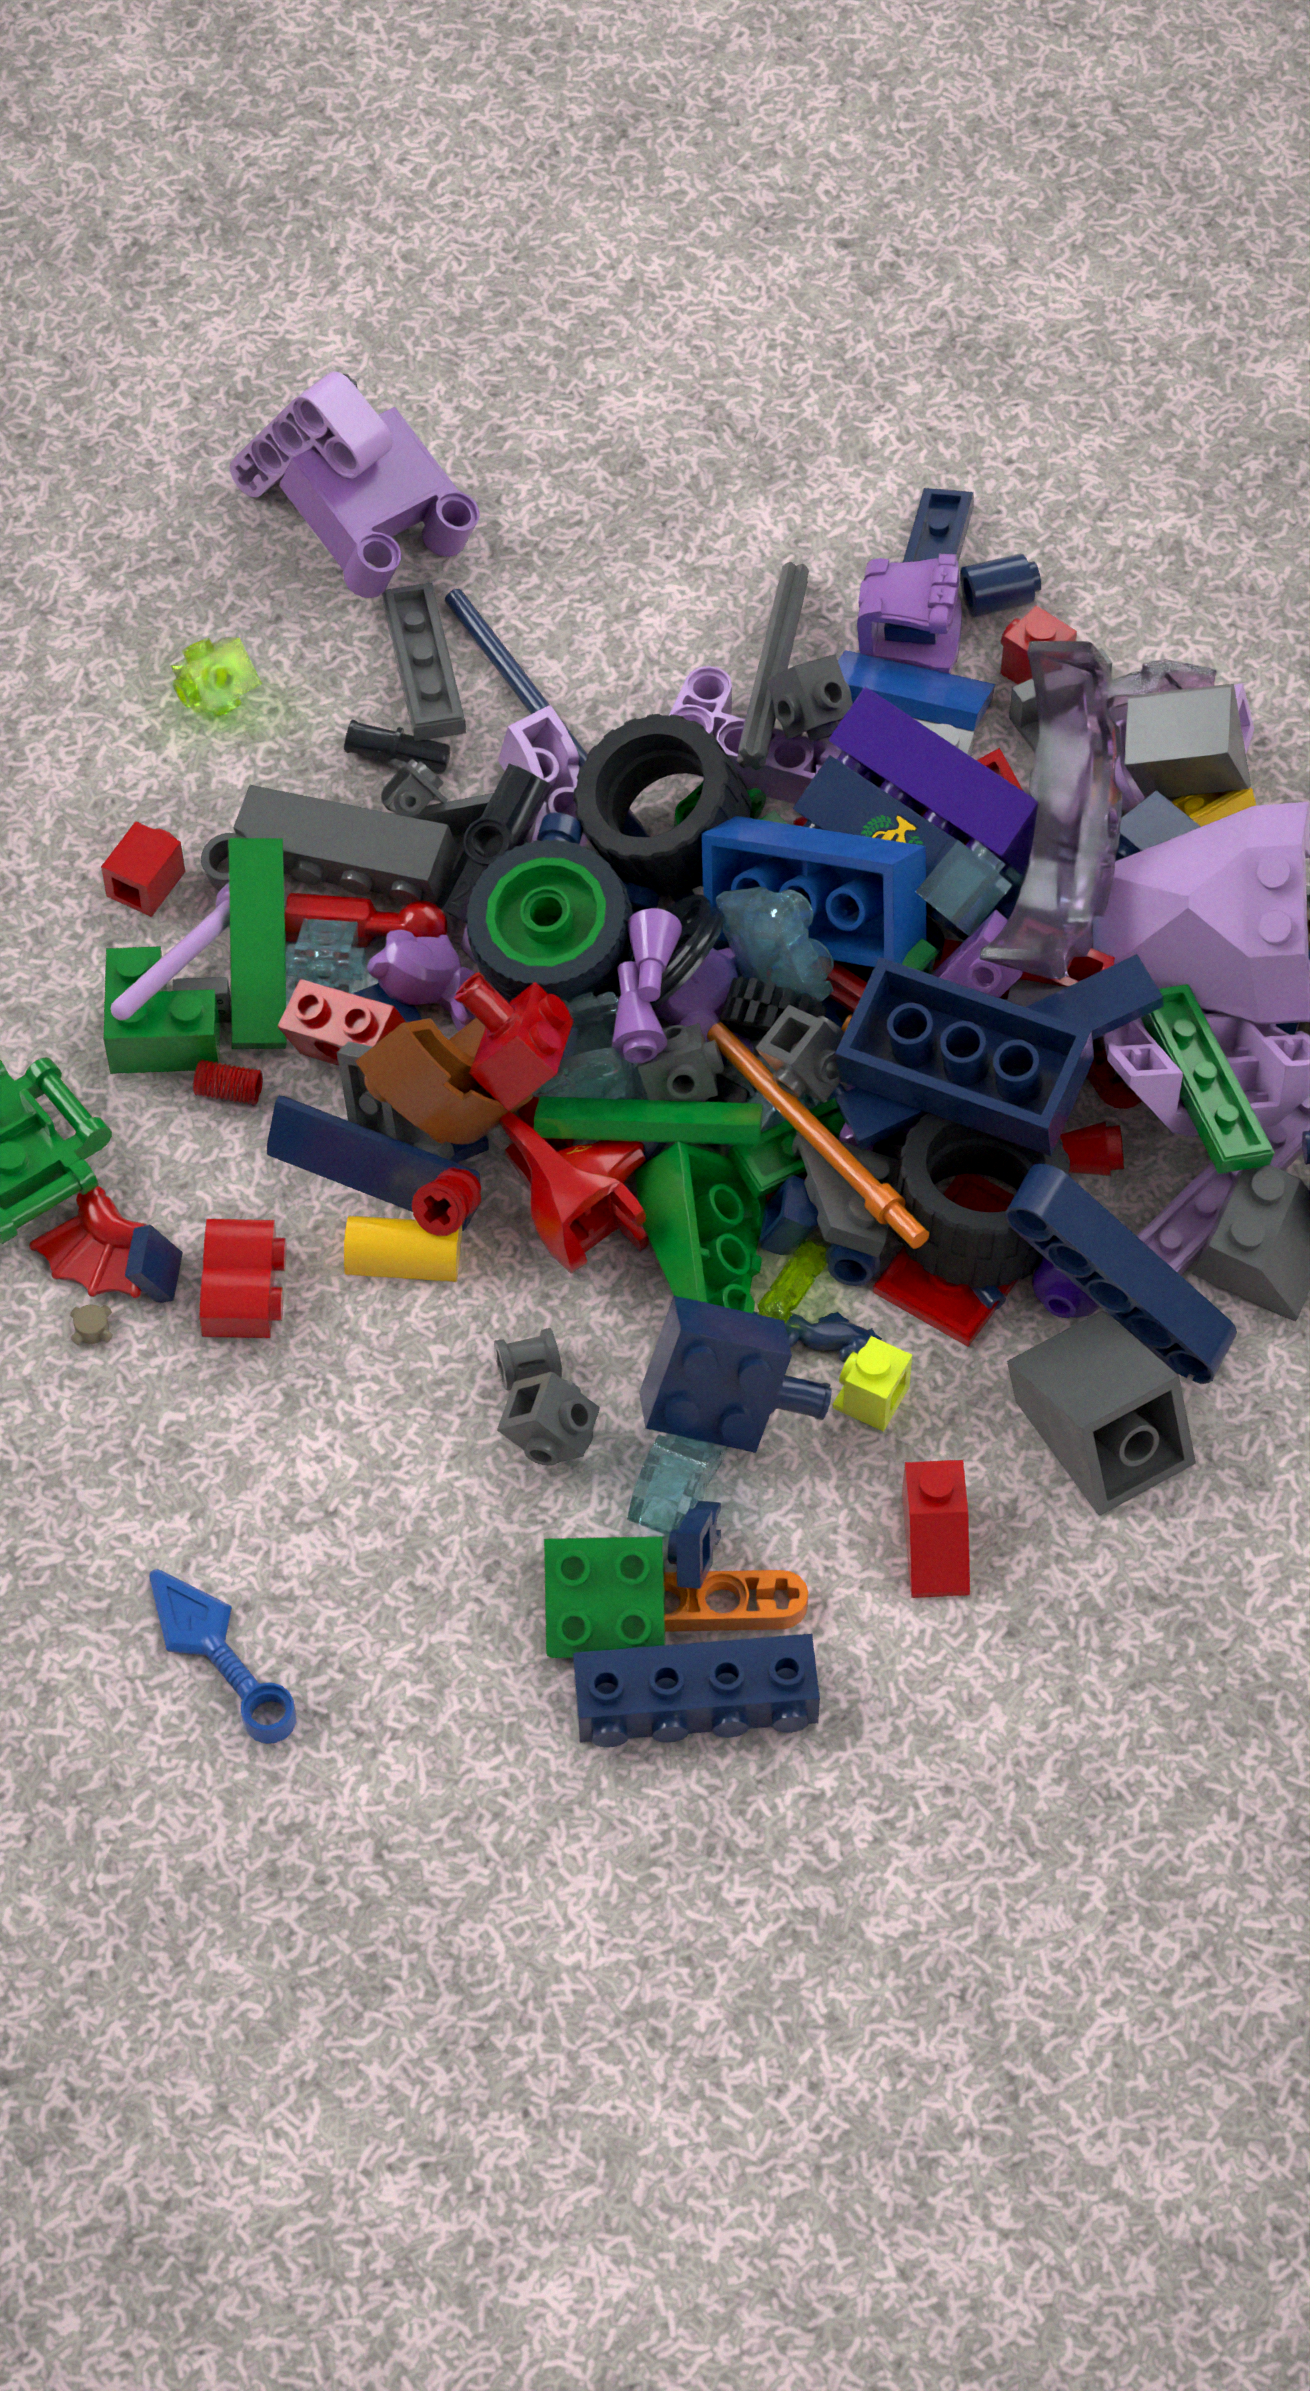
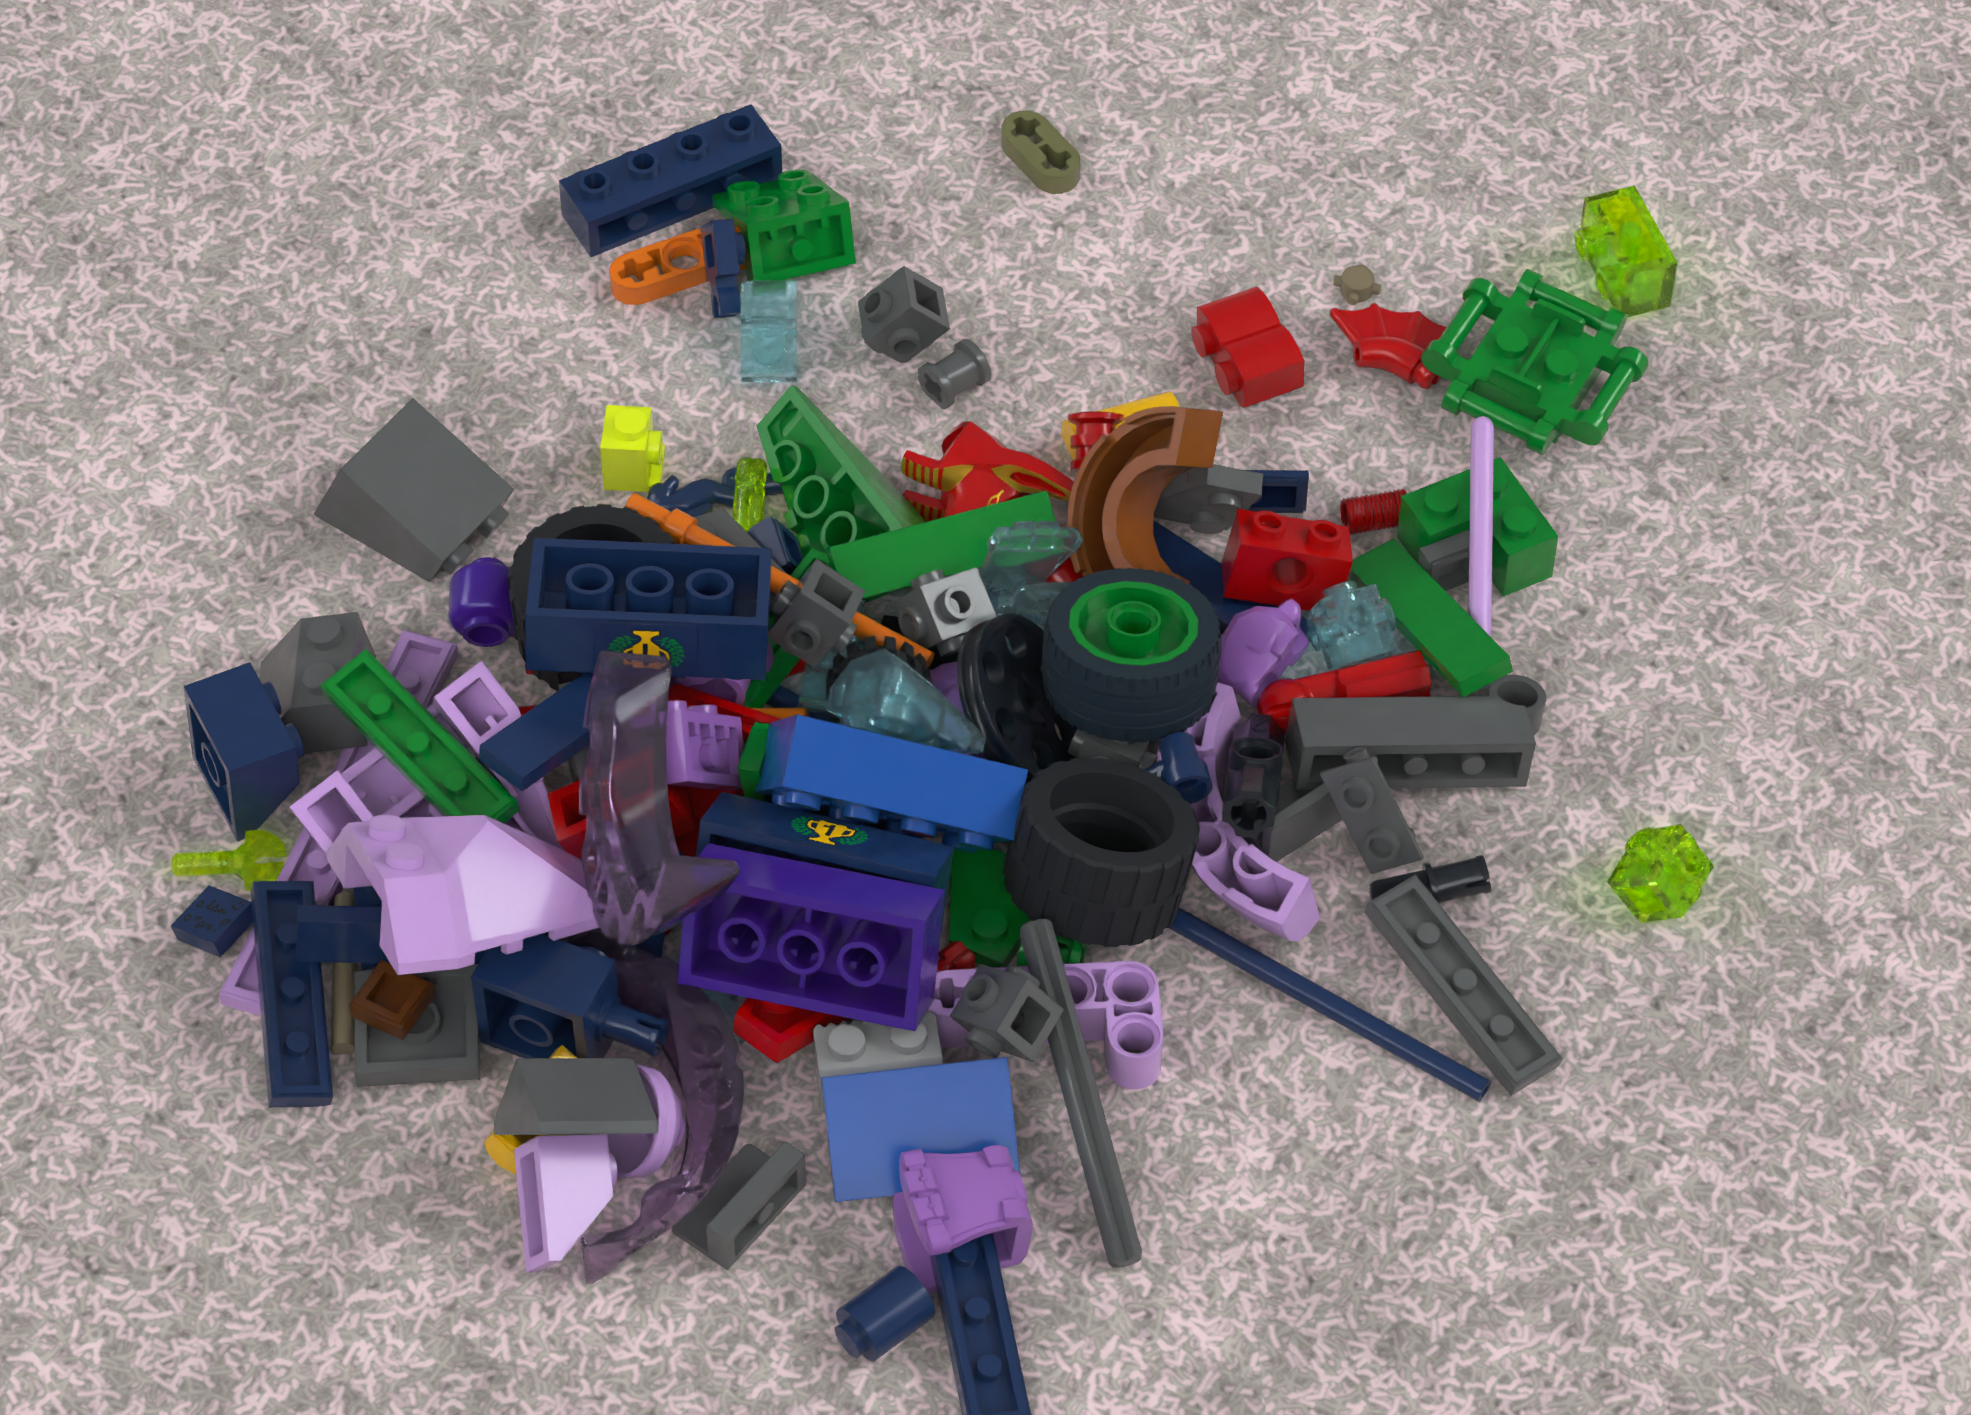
camera: 155 degrees right, 5 degrees down
(143, 868) = (1592, 664): red brick -> none
(153, 1264) = (1331, 330): dark blue tile -> none
(199, 1625) = (1109, 108): blue piece -> none
(290, 1595) = (1047, 146): none -> olive beam
(324, 416) = (1731, 1092): lavender beam -> none
(364, 512) = (1632, 1108): medium lavender piece -> none
(519, 1041) = (1094, 514): red brick -> none
(637, 1029) = (988, 573): medium lavender cone -> none
(653, 940) = (1015, 641): medium lavender cone -> none
(723, 1376) = (753, 363): dark blue brick -> none
(936, 1528) = (527, 369): red slope -> none
(965, 886) = (727, 778): clear light blue brick -> none
(1034, 626) = (801, 1235): brick -> none
(1120, 1273) = (434, 552): dark blue beam -> none

